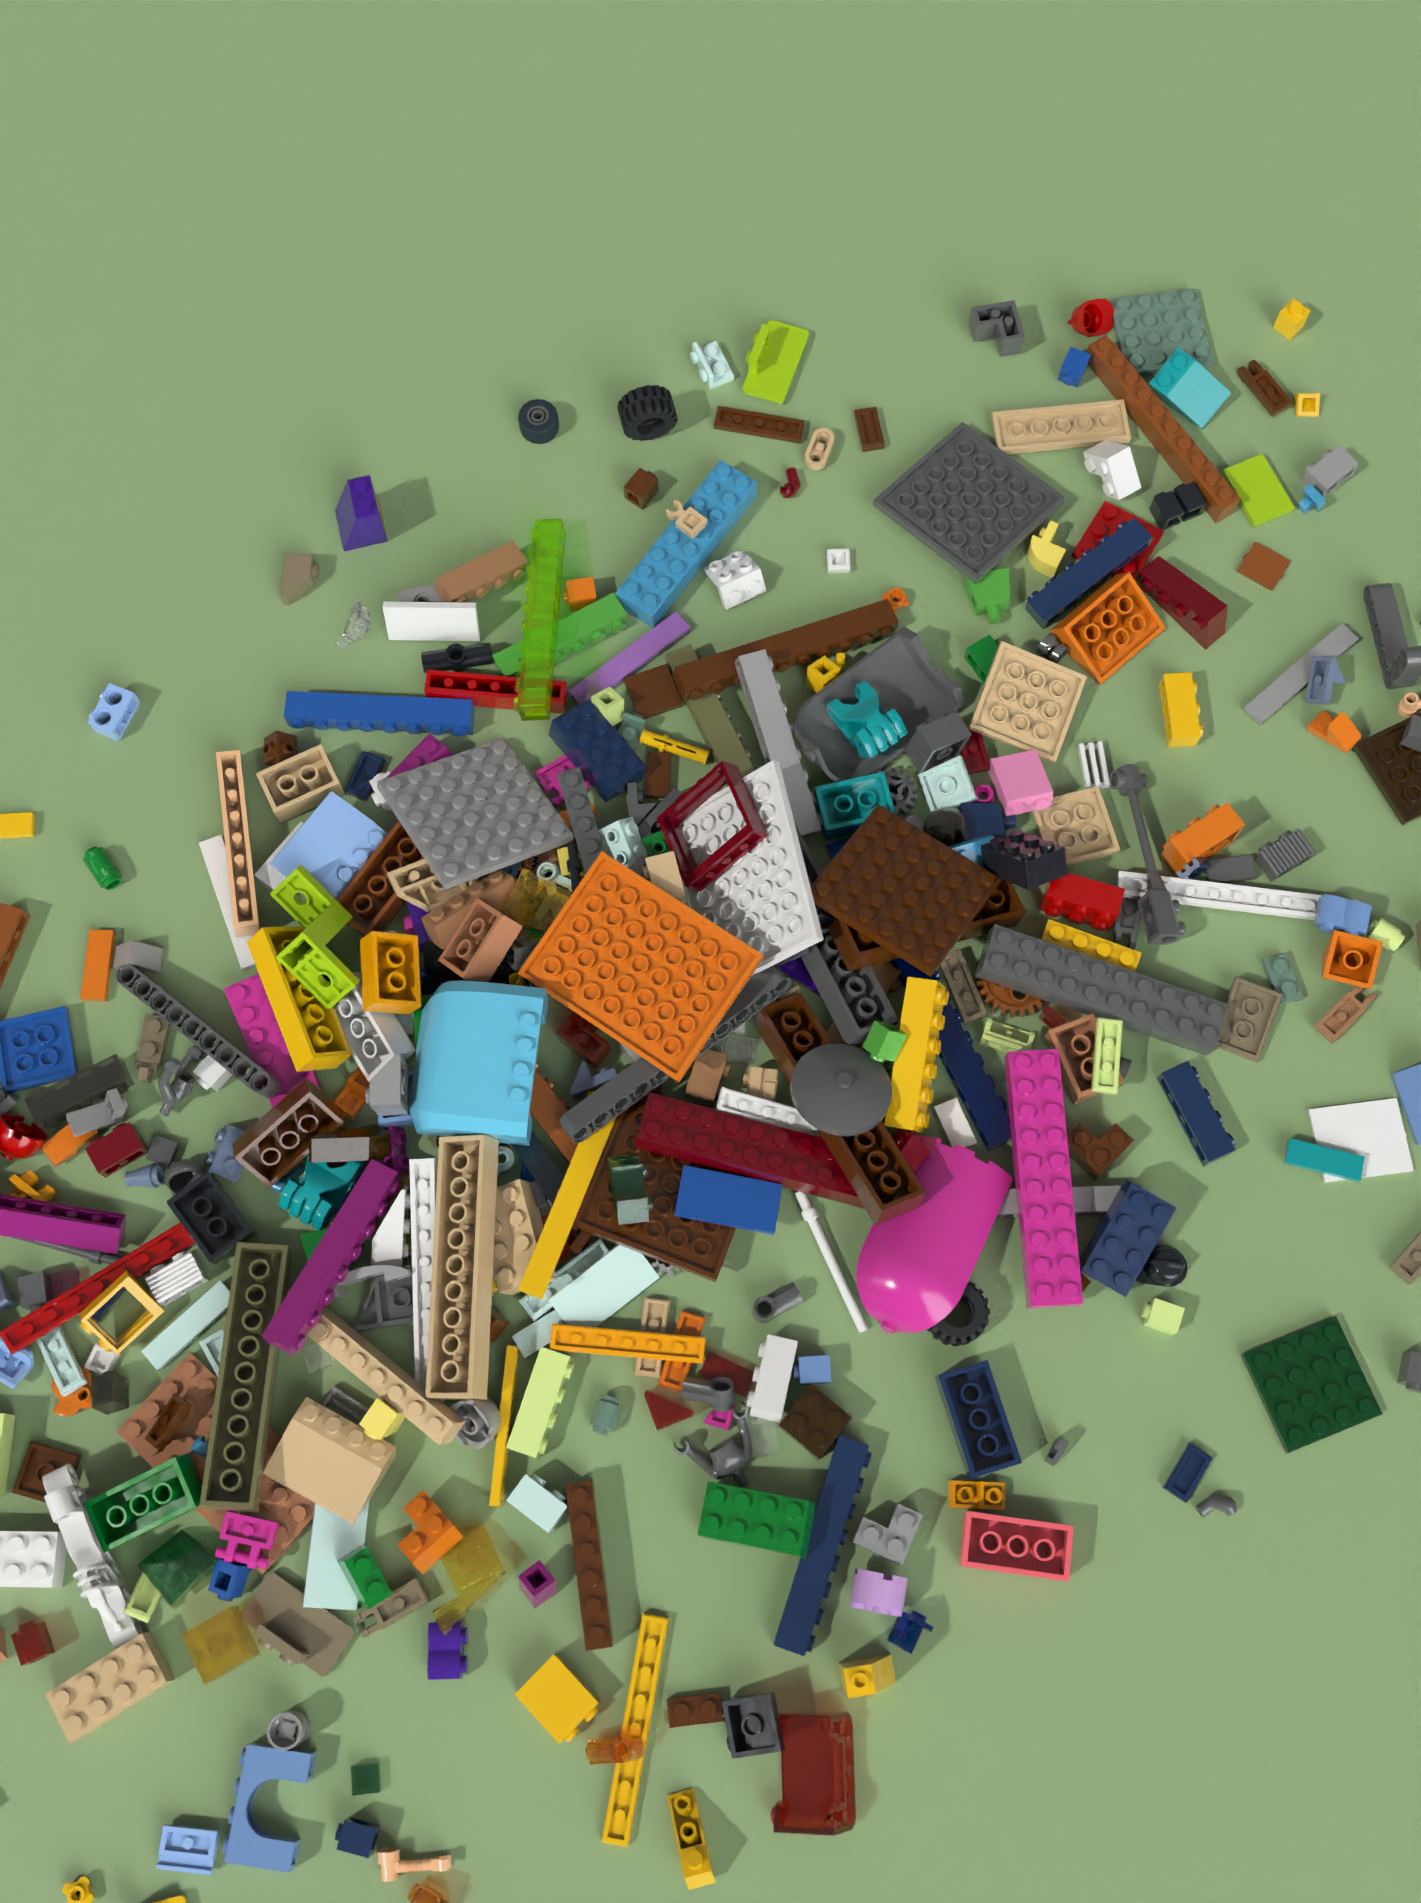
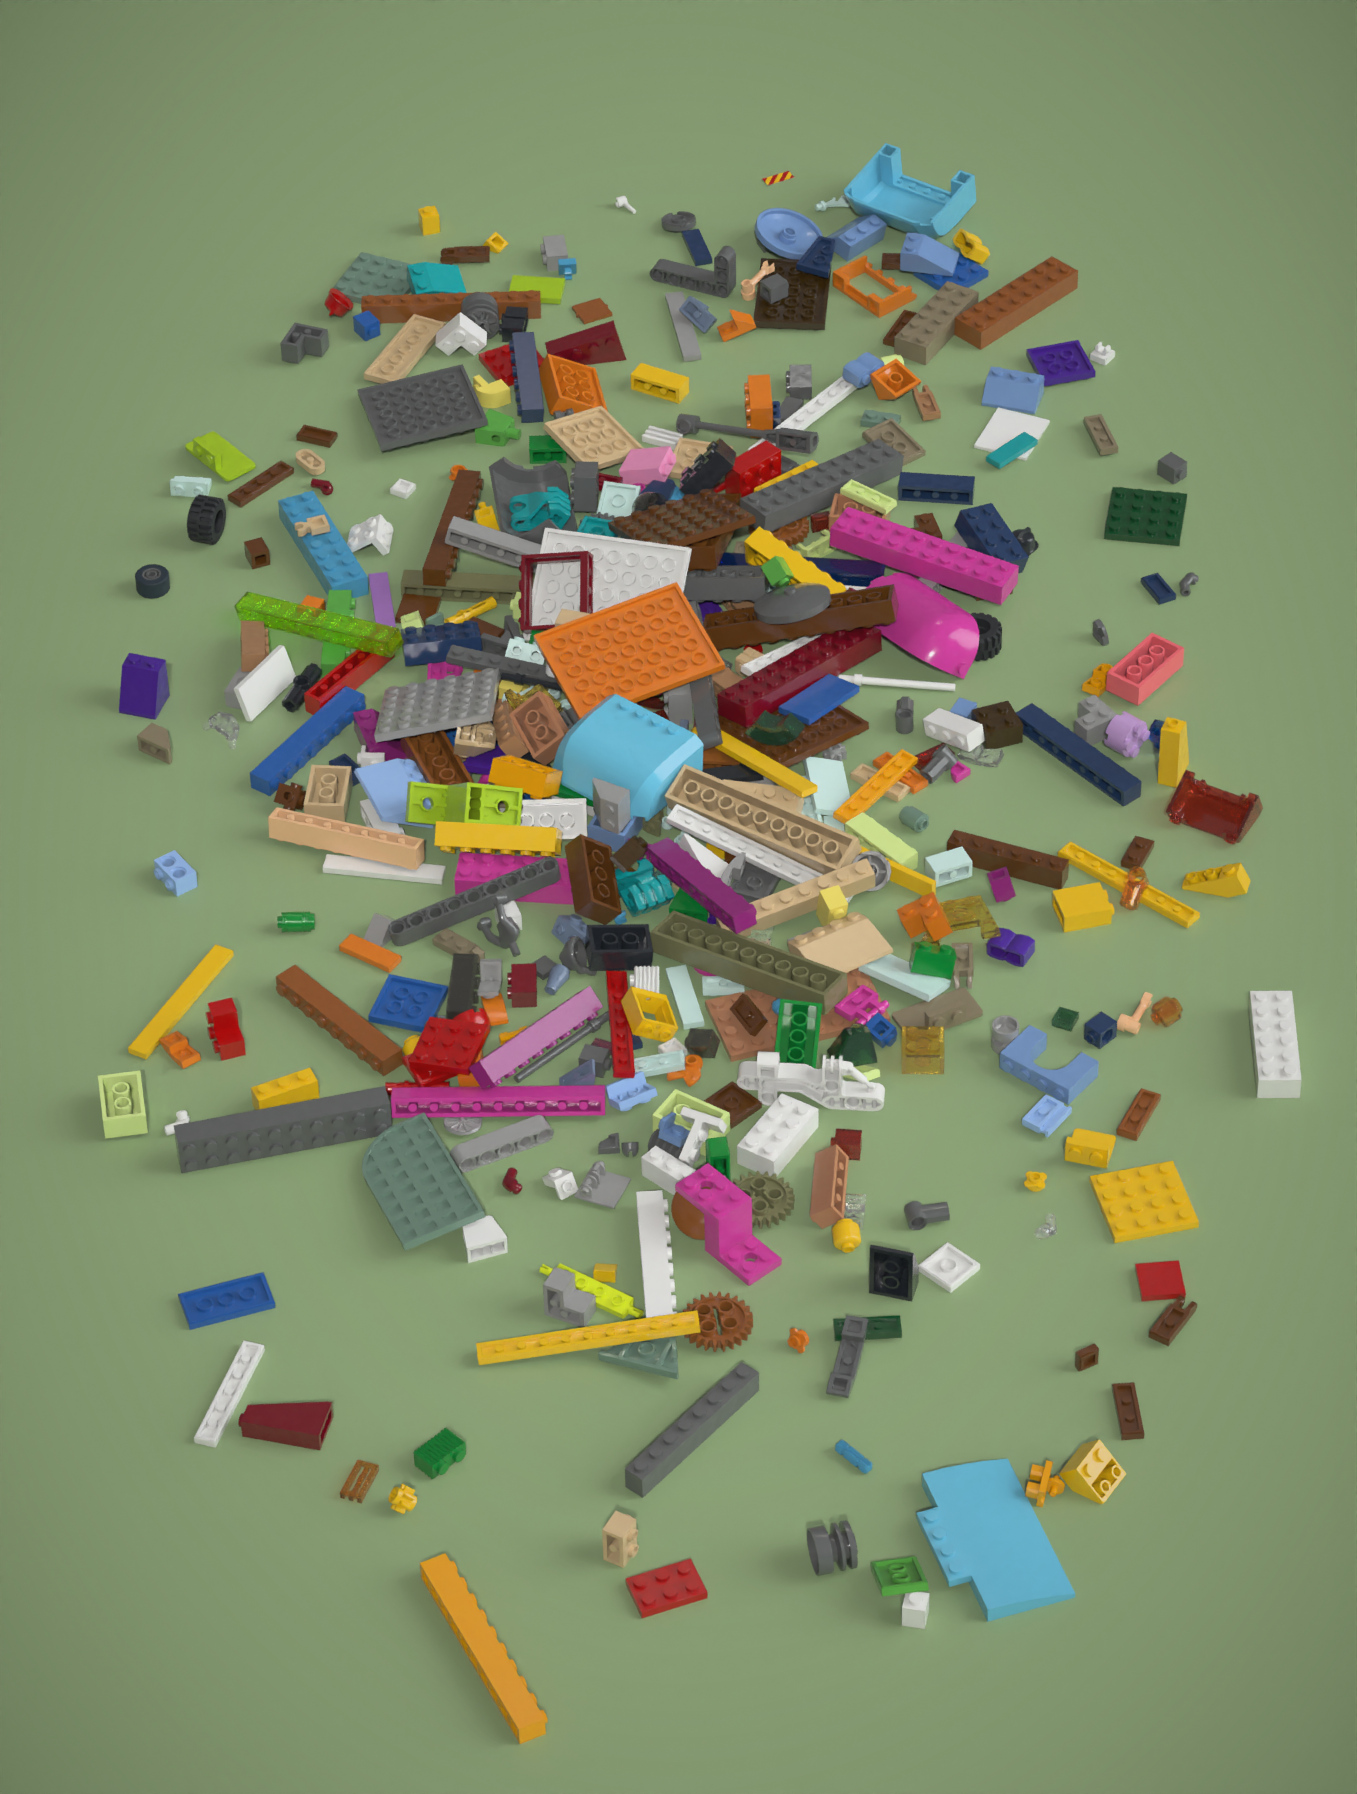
camera: 60 degrees left, 30 degrees down
(109, 1687) = (908, 1113): tan brick -> none
(666, 1412) = (932, 790): clear red slope -> none
(726, 1456) = (986, 771): dark grey piece -> none
(752, 1725) = (1166, 820): black plate -> none
(757, 1519) = (1039, 767): green brick -> none
(978, 1419) = (1053, 653): dark blue brick -> none
(1159, 465) = (483, 311): none -> dark grey wheel
(1162, 1316) = (1053, 554): yellowish green brick -> none

